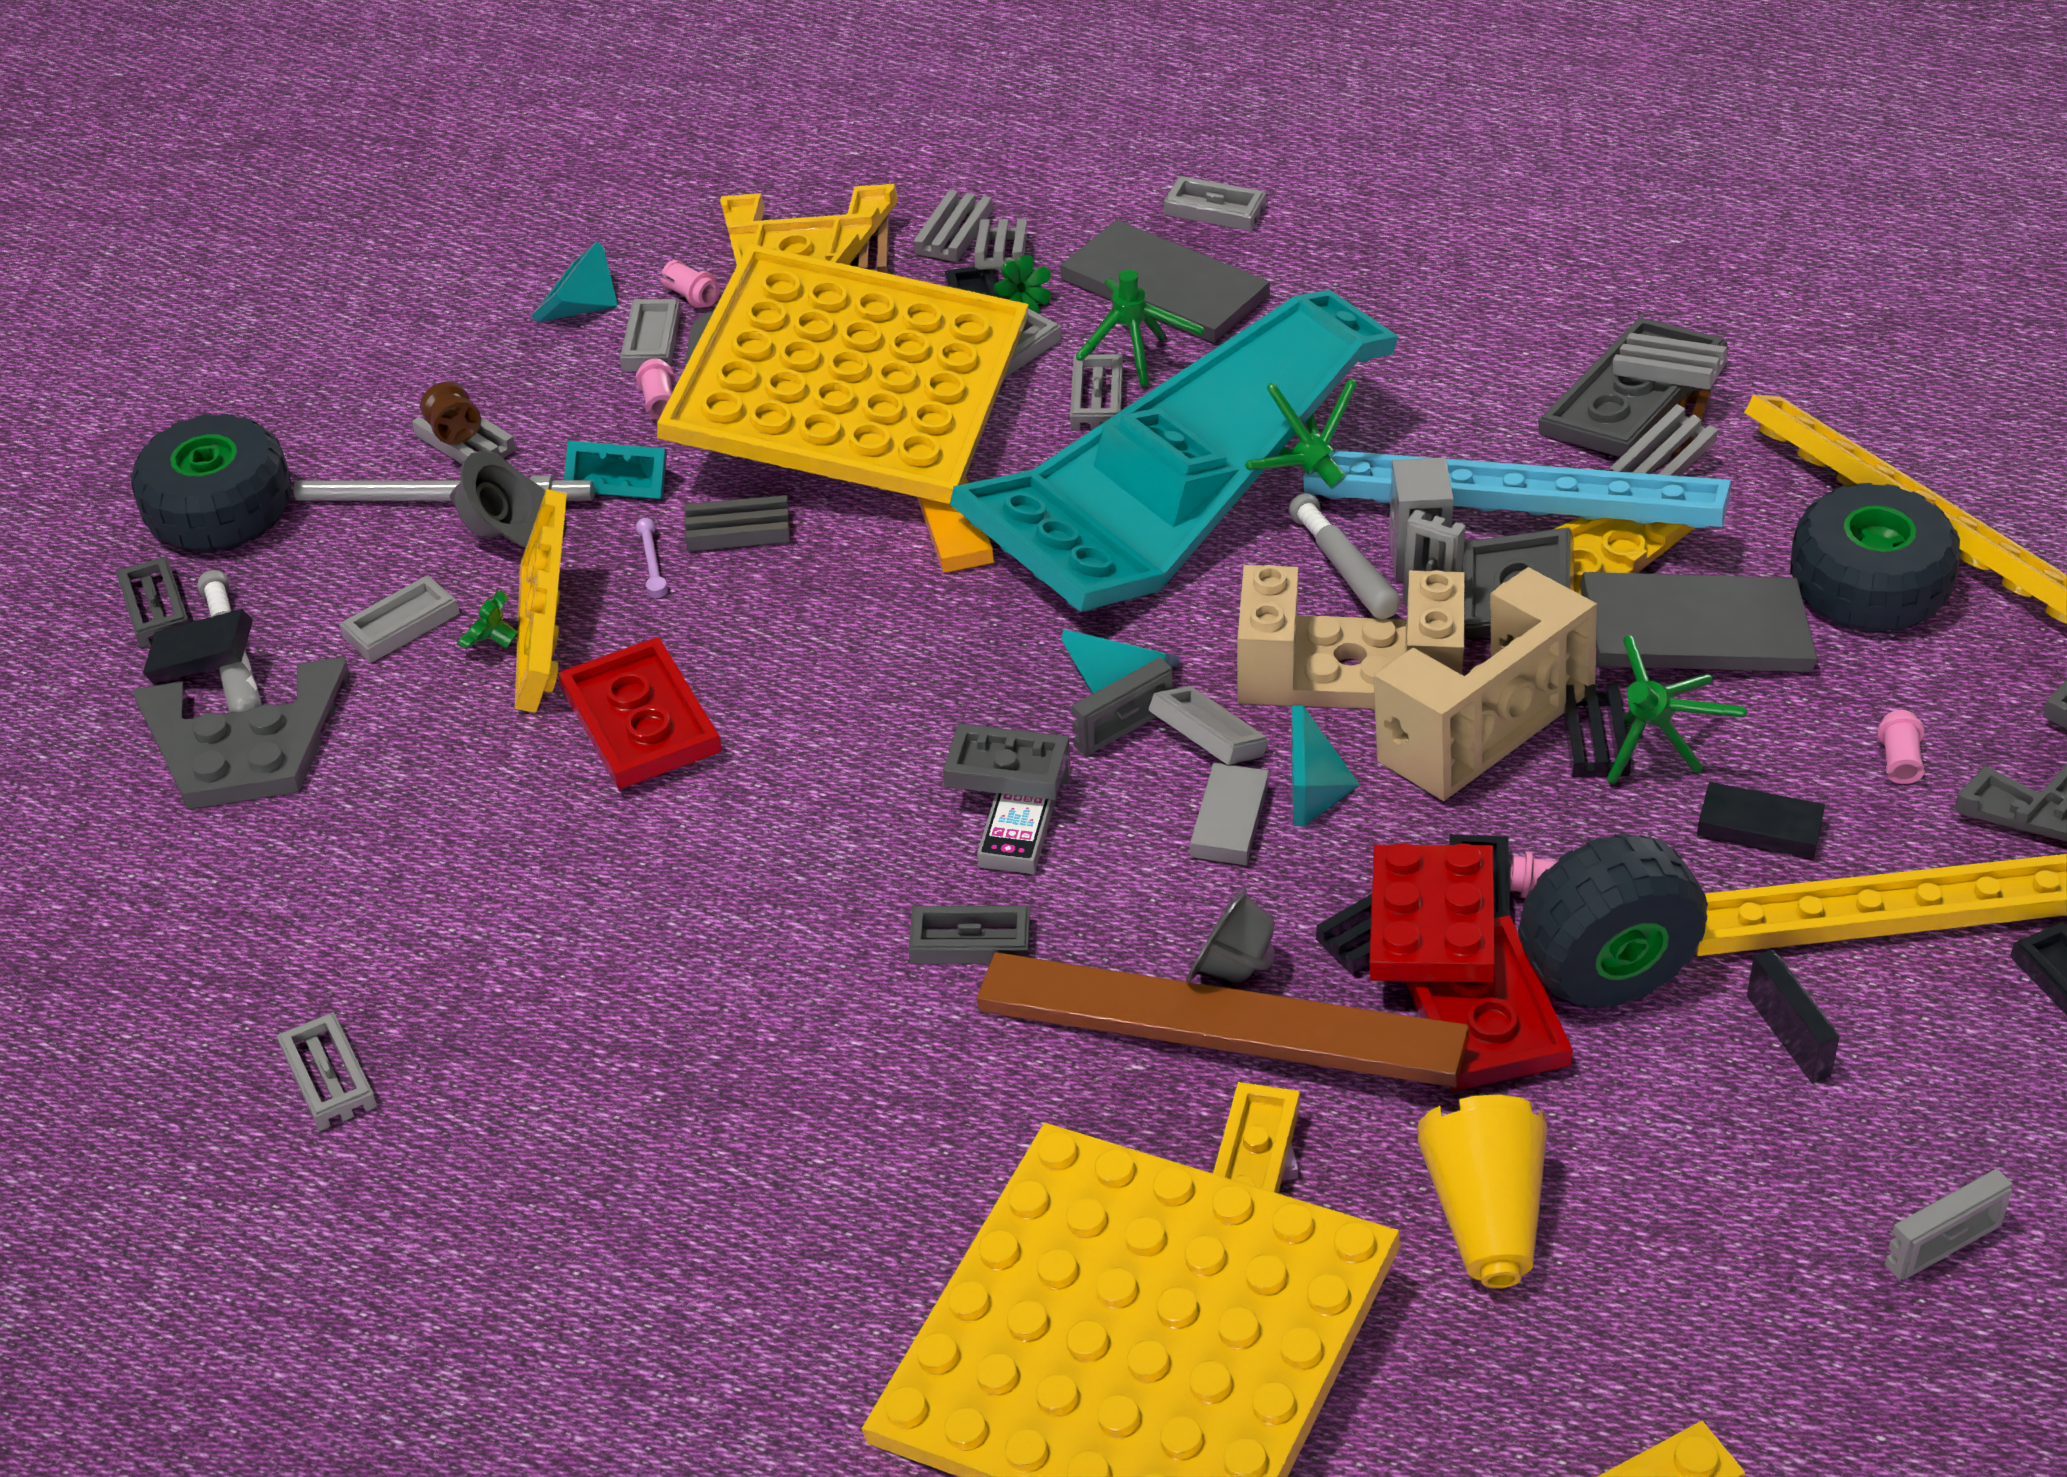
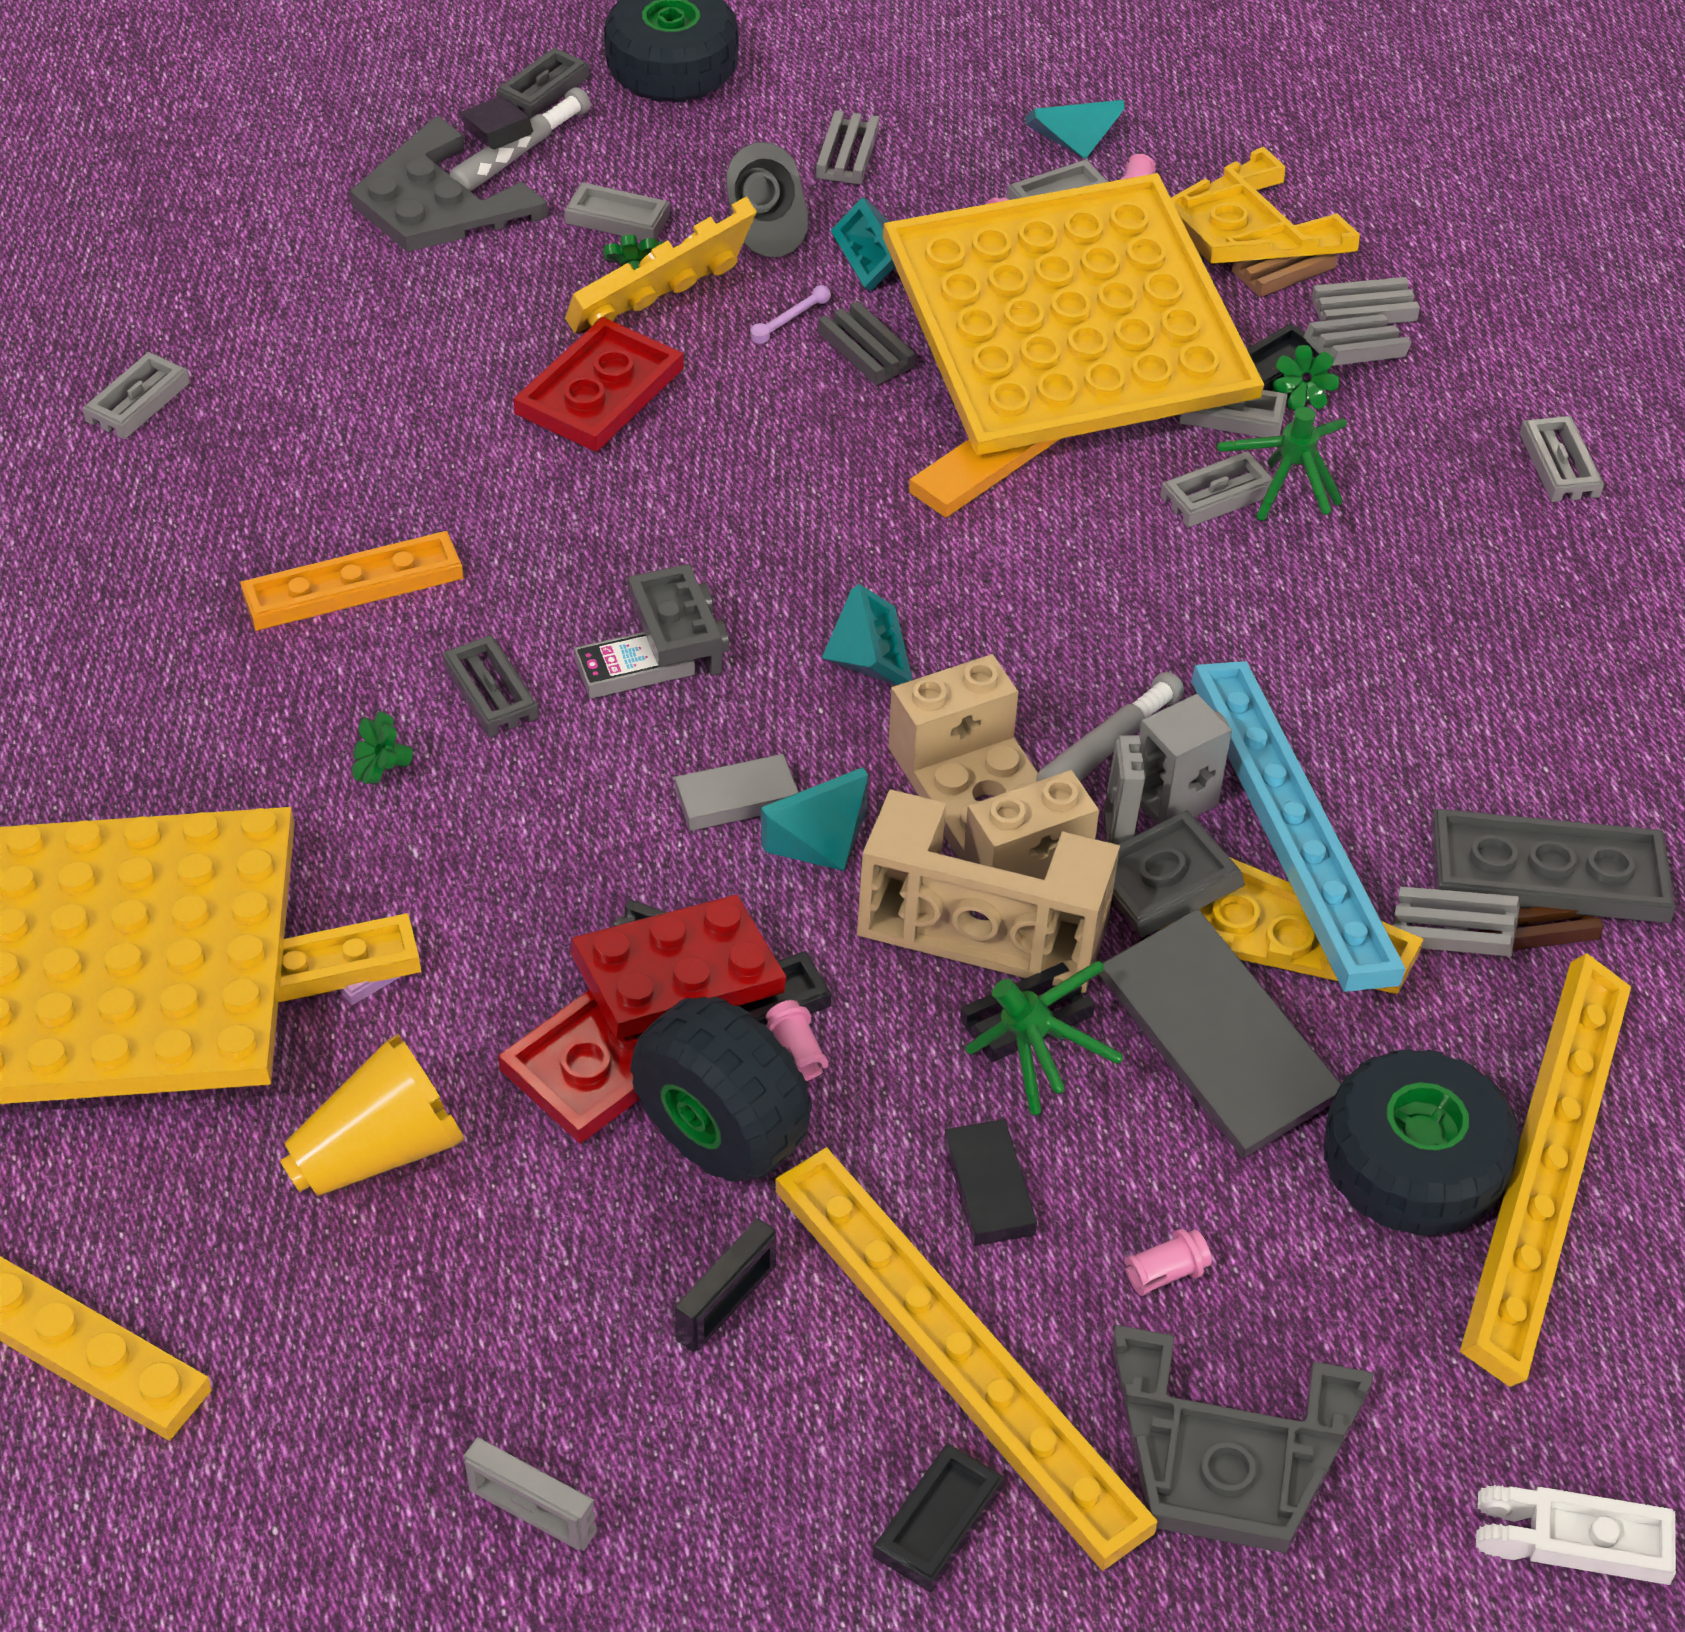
camera: 55 degrees right, 5 degrees up
(420, 489) = (818, 216): light grey bar -> none
(450, 423) = (841, 119): reddish brown wheel -> none
(746, 990) = (351, 580): none -> light orange tile
(1006, 1038) = (378, 749): none -> green plant
(1119, 707) = (806, 665): dark grey tile -> none
(1157, 478) = (1053, 558): teal wing -> none
(1171, 276) = (1413, 471): dark grey tile -> none
(1209, 725) = (828, 731): light grey tile -> none
(1225, 1019) = (477, 885): dark orange tile -> none
(1237, 942) = (555, 842): dark grey piece -> none
(1313, 450) = (1208, 648): green plant -> none
(1670, 361) = (1608, 864): light grey tile -> none

